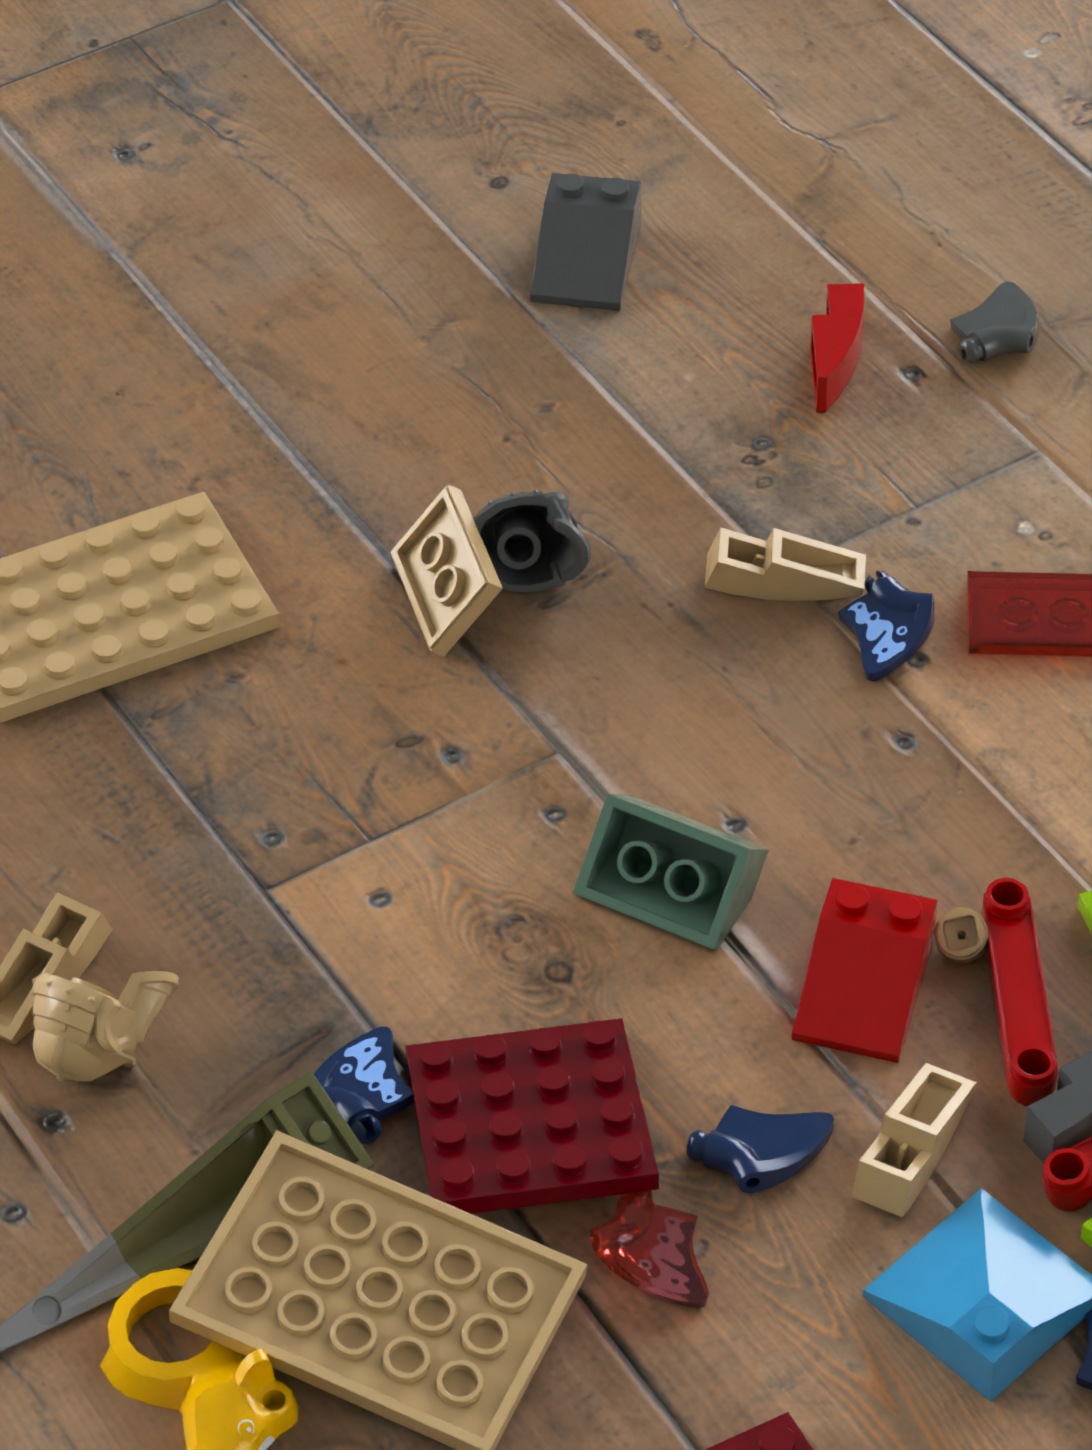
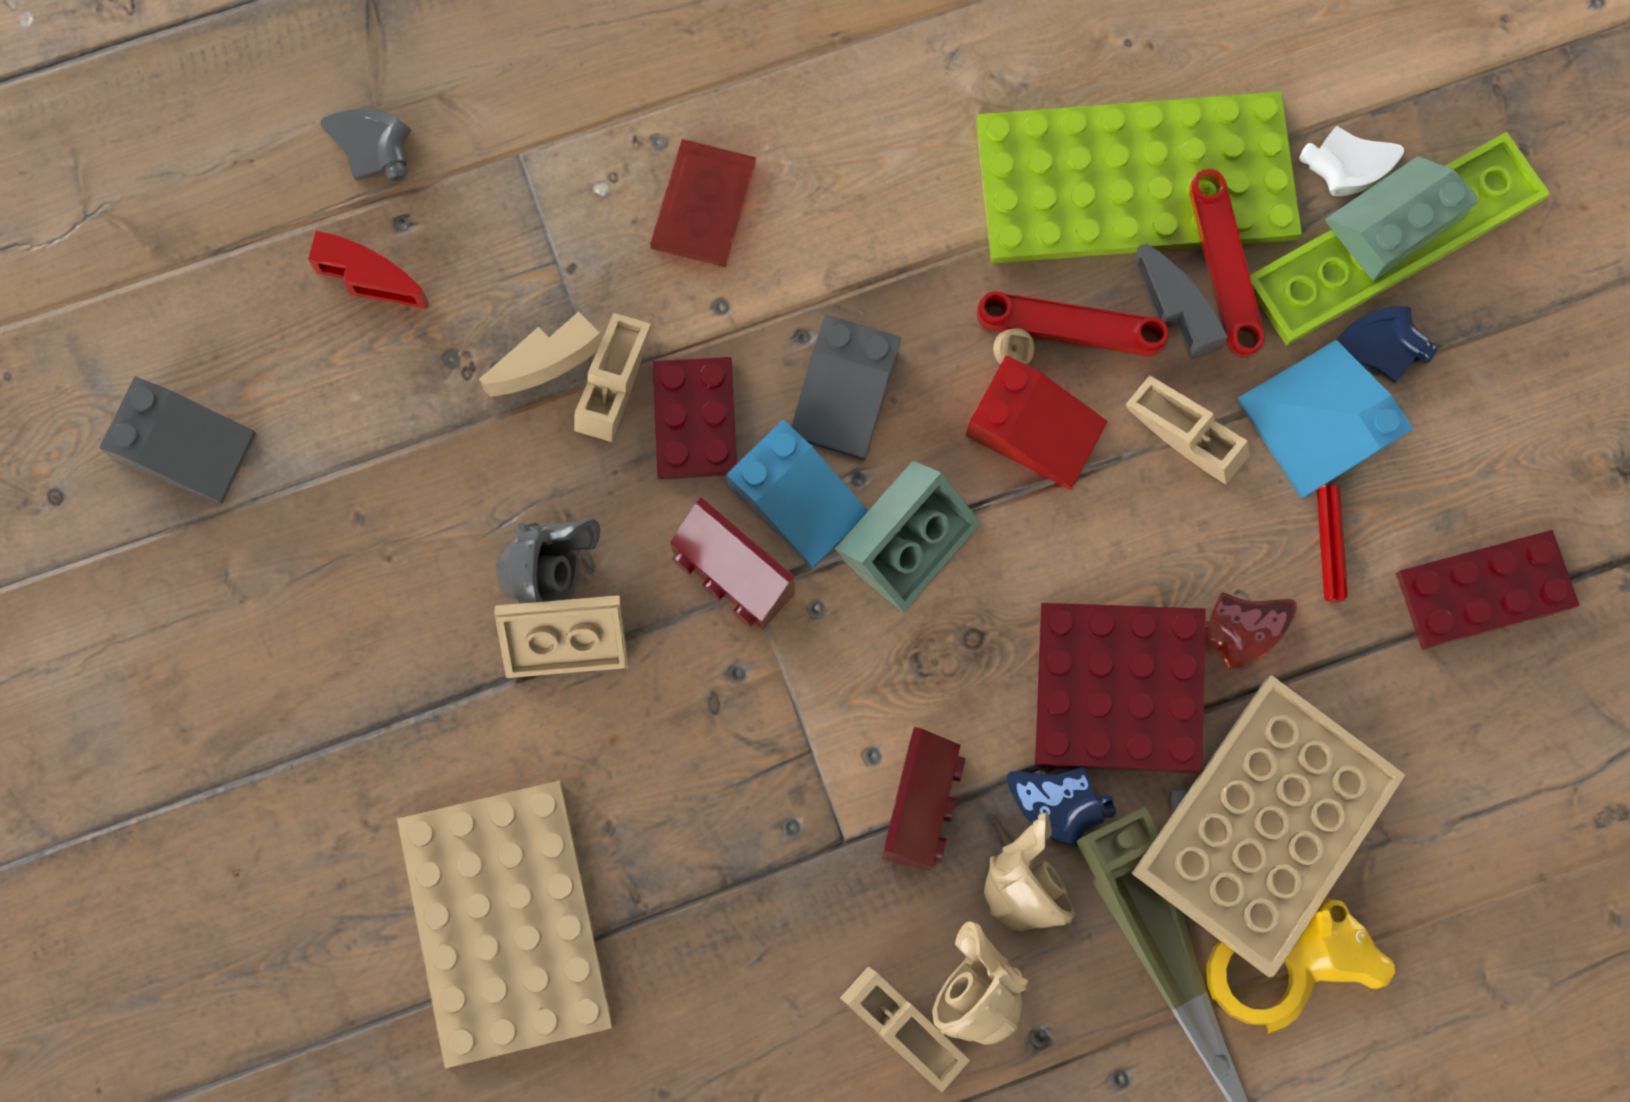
camera: 80 degrees left, 30 degrees up
(251, 1049) = (1024, 887): none -> tan head
(326, 919) = (923, 800): none -> dark red slope
(579, 706) = (731, 565): none -> slope
(696, 746) = (796, 494): none -> dark azure slope
(761, 656) = (694, 417): none -> dark red plate
(761, 1147) = (1170, 533): dark blue arm -> none
(784, 498) = (543, 357): none -> tan slope
(805, 1330) = (1332, 543): none -> red axle
(849, 778) = (845, 386): none -> dark grey slope
(888, 624) = (686, 316): dark blue arm -> none

